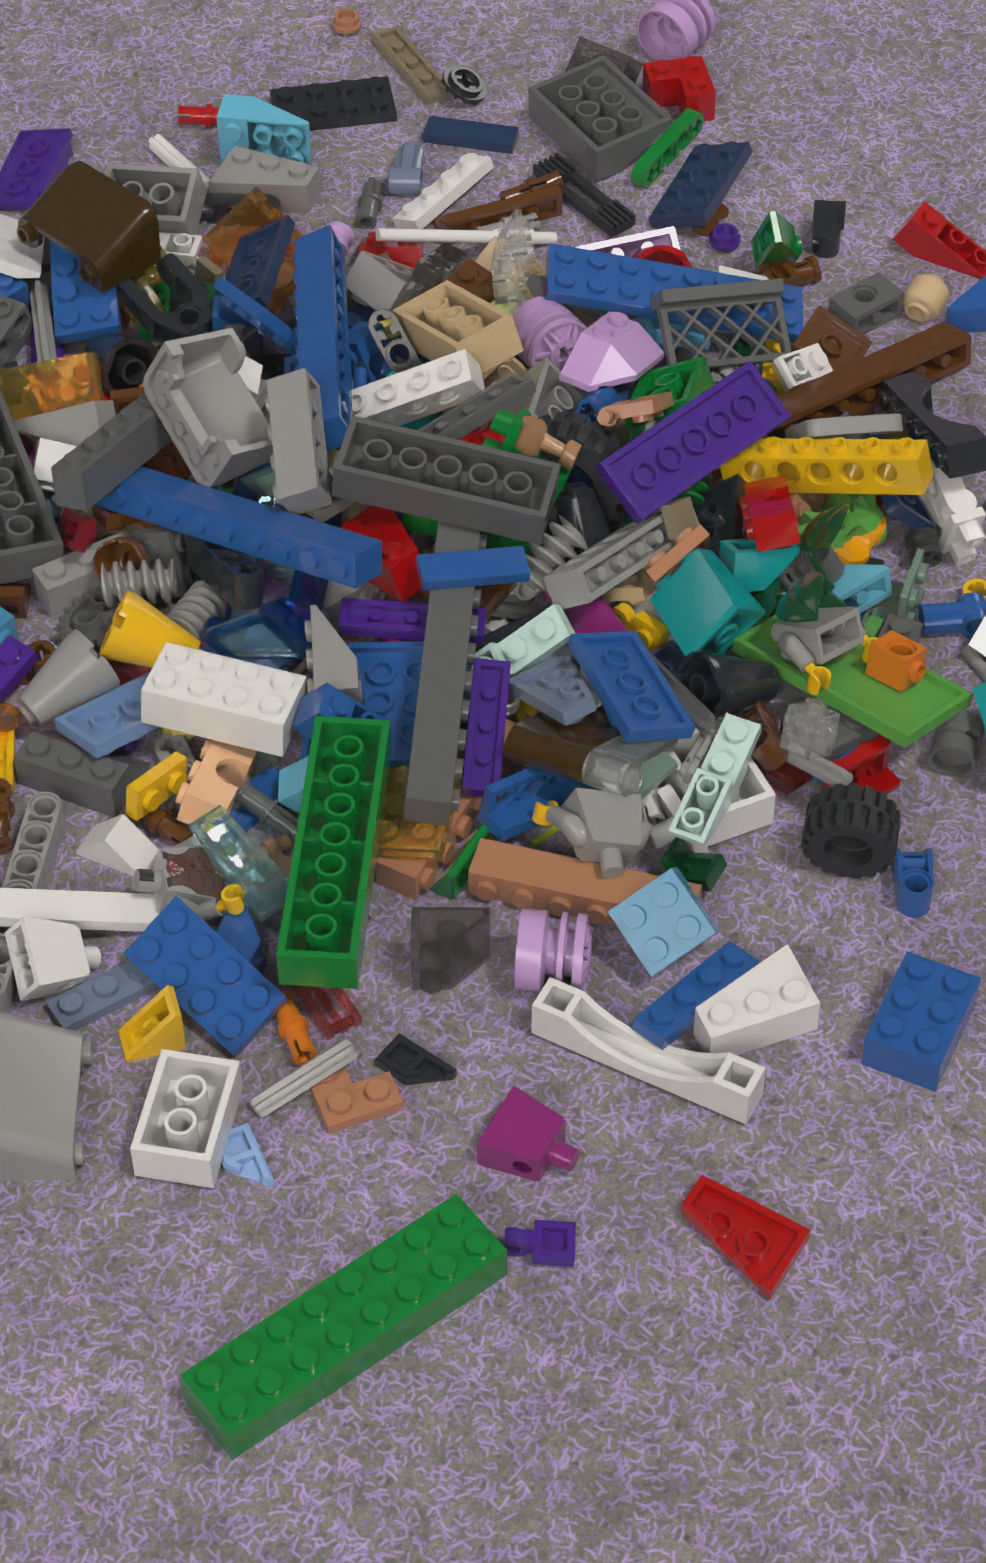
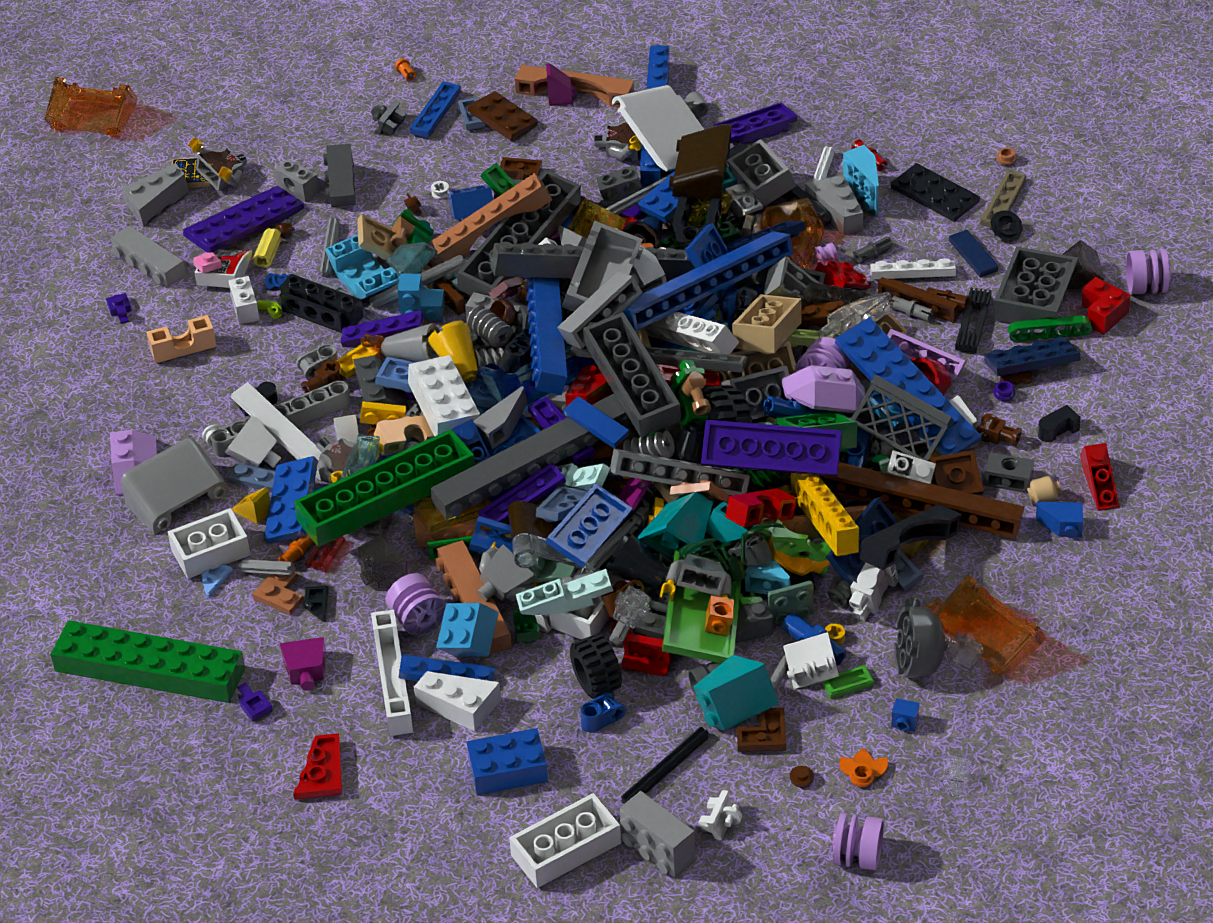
camera: 55 degrees right, 5 degrees down
(407, 173) = (910, 248): sand blue piece -> none
(454, 236) = (910, 317): white bar -> none
(640, 409) = (768, 412): nougat plate -> none
(678, 516) = (725, 478): dark tan tile -> none
(776, 241) = (1005, 406): green slope -> none
(846, 426) = (859, 501): light grey beam -> none

